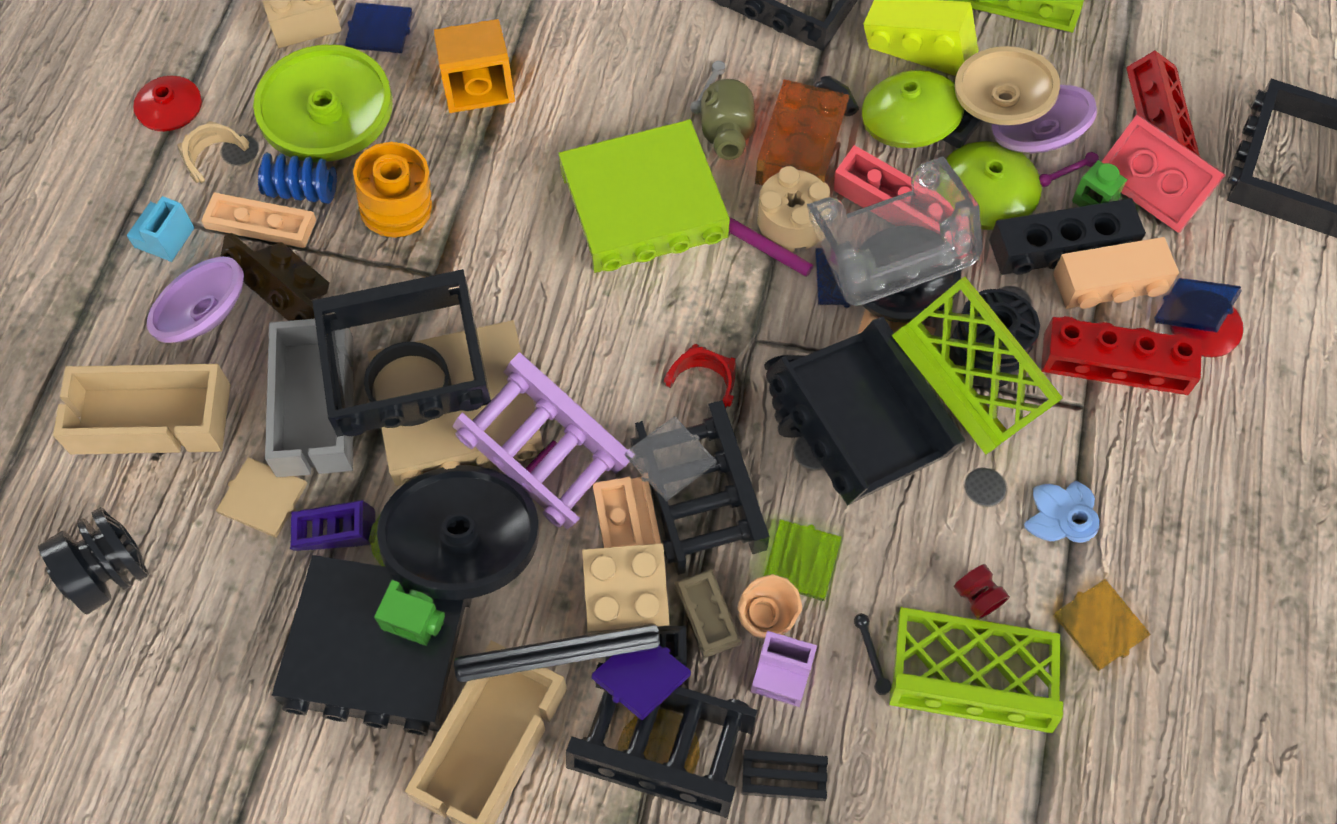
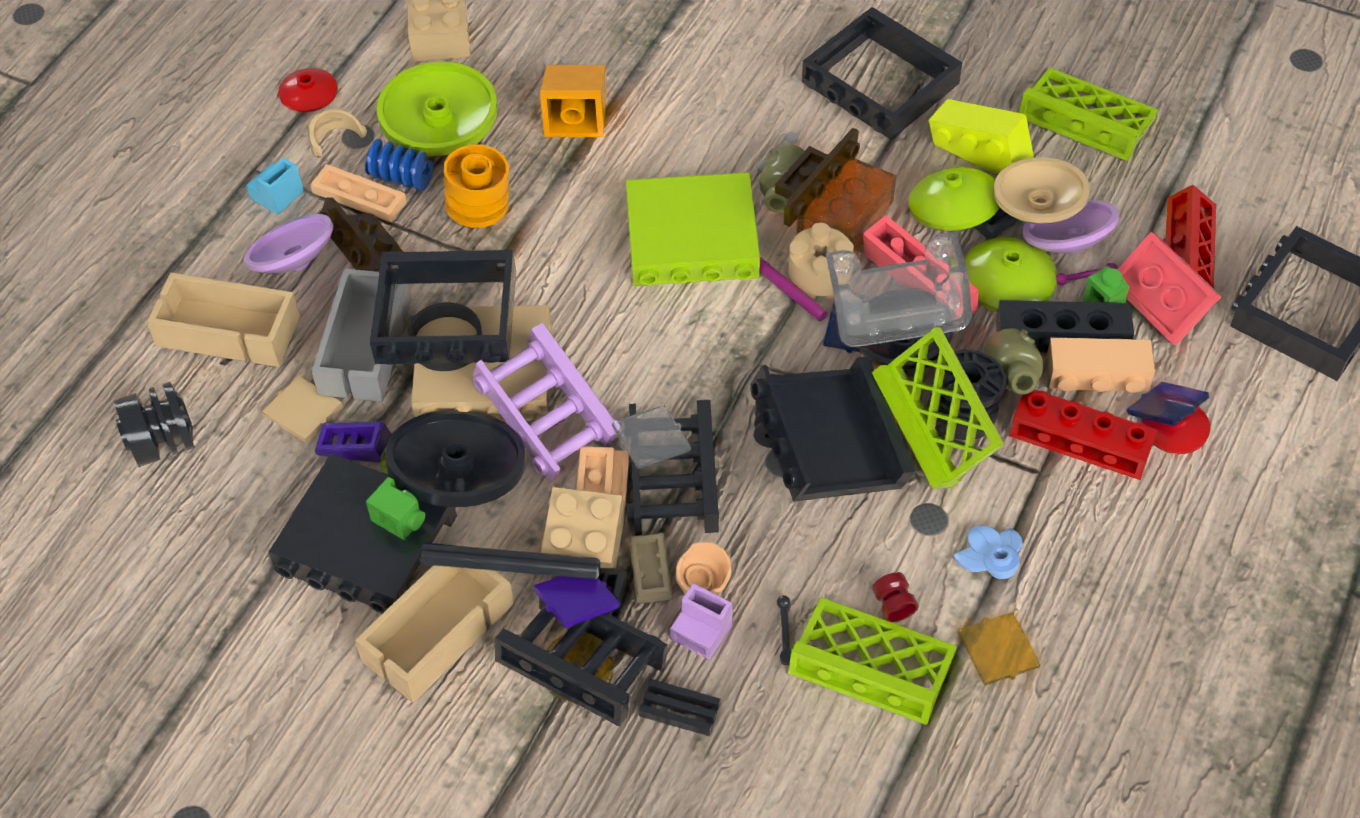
camera: 15 degrees right, 10 degrees down
(379, 27) = (503, 58): clear blue piece -> none
(701, 357) = (705, 367): red helmet -> none
(762, 112) = (811, 175): none -> dark brown bracket
(804, 557) = (749, 543): clear neon green piece -> none
(832, 84) = (900, 187): black arm -> none
(1038, 284) = (1018, 358): none -> olive piece

